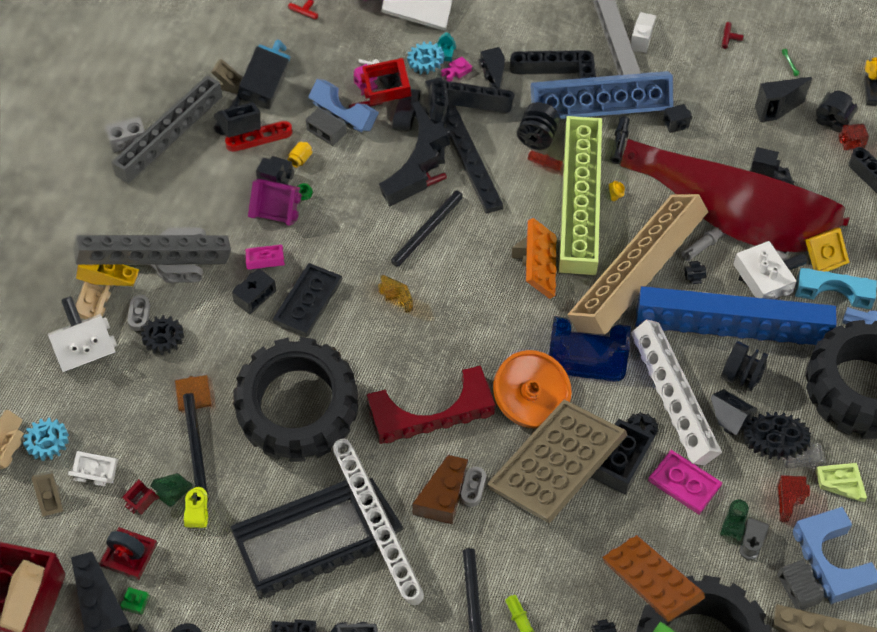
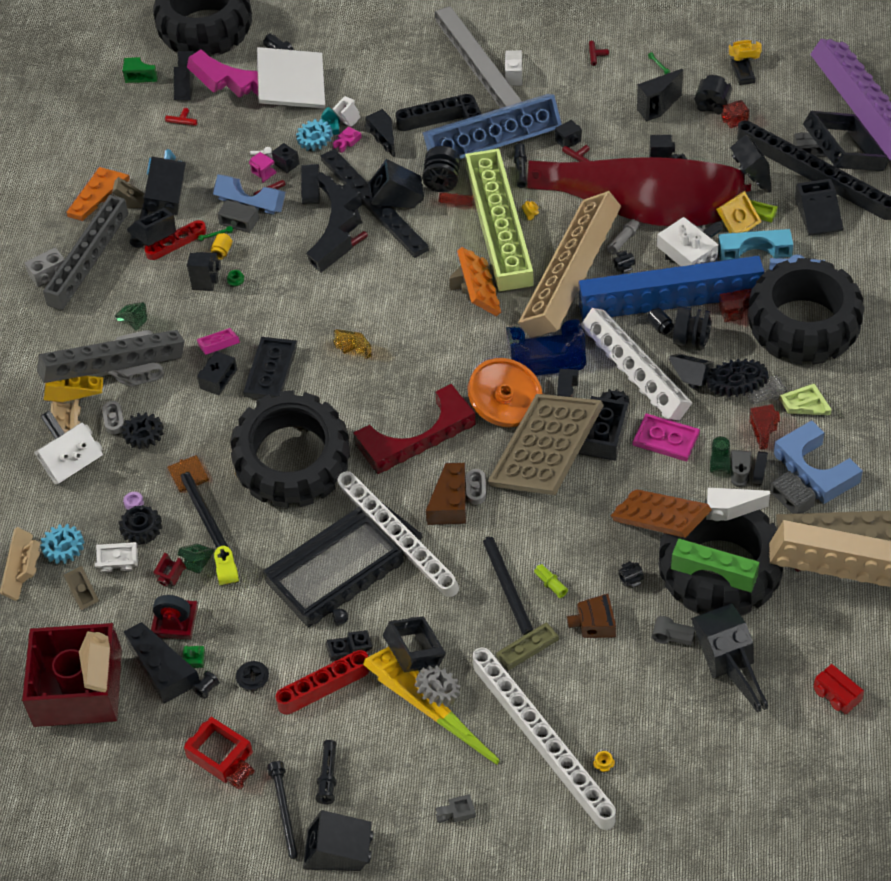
camera: 10 degrees left, 5 degrees down
(128, 448) = (140, 524): none -> black gear
(130, 409) = (133, 499): none -> lavender tile
(192, 206) = (134, 314): none -> clear green slope
(197, 67) = (95, 192): none -> orange wing
(274, 201) = (212, 291): magenta panel -> none
(293, 597) = (340, 616): none -> black hinge
(313, 137) = (229, 229): none -> green hinge
(381, 69) = (280, 150): red window -> none
(426, 228) = (363, 282): black axle -> none
(464, 41) = (347, 111): none -> white window
(466, 95) = (348, 159): black beam -> none
(488, 134) = (395, 186): none -> black slope
(599, 390) = (566, 381): none -> black leg
(681, 142) = (577, 155): none -> dark red piece
(714, 348) = (660, 321): none -> black brick
(727, 591) = (735, 502): none -> white slope
(773, 545) = (760, 467): none -> black beam
(796, 349) = (734, 304): none -> clear red arch
(855, 251) = (765, 211): none -> lime tile
(856, 197) = (752, 162): none -> black slope

